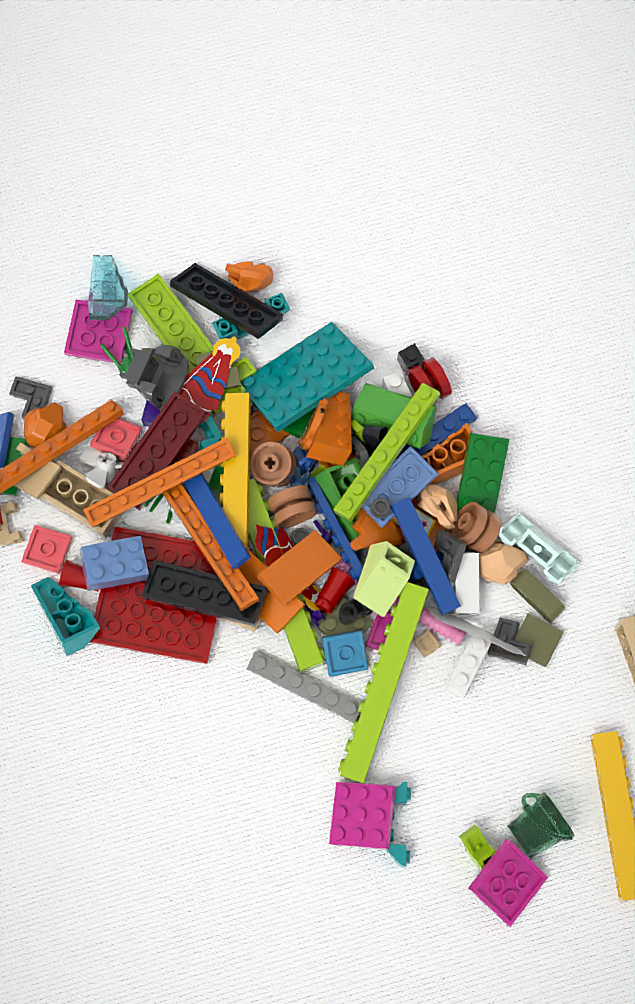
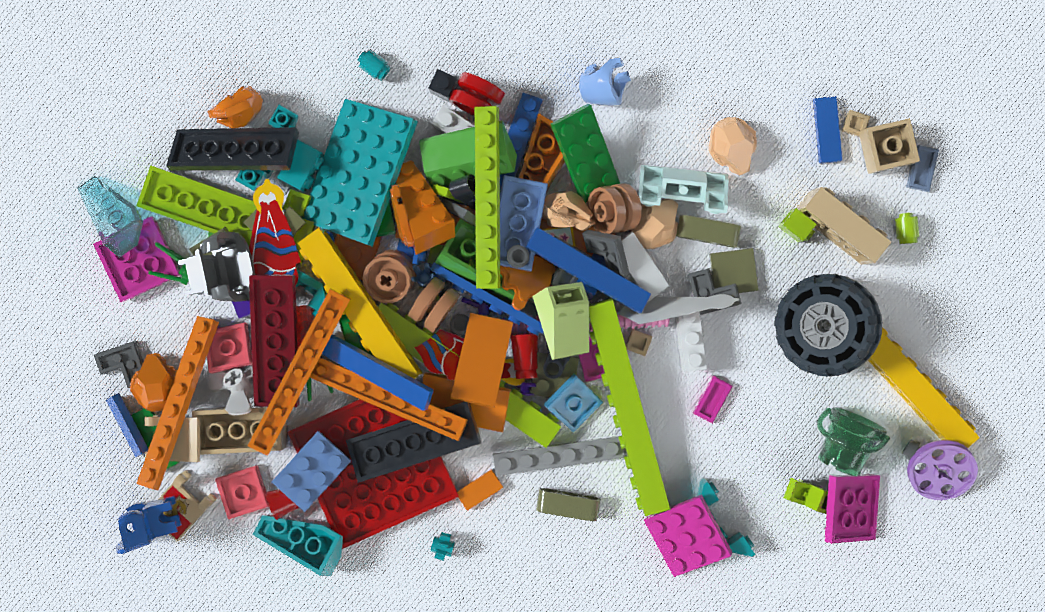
camera: 35 degrees left, 15 degrees up
(167, 692) = (442, 546): none -> teal gear
(225, 671) = (479, 489): none -> orange tile
(265, 348) = (304, 165): none -> teal brick
(286, 728) = (568, 504): none -> olive beam
(369, 312) = (373, 65): none -> teal brick
(454, 726) = (712, 399): none -> dark pink tile
(523, 434) = (597, 86): none -> light blue piece
(581, 720) = (853, 321): none -> black wheel
(587, 873) = (911, 448): none -> dark grey plate
(595, 912) = (944, 462): none -> medium lavender wedge
(599, 544) = (733, 144): none -> light nougat helmet
(609, 637) = (797, 225): none -> lime brick

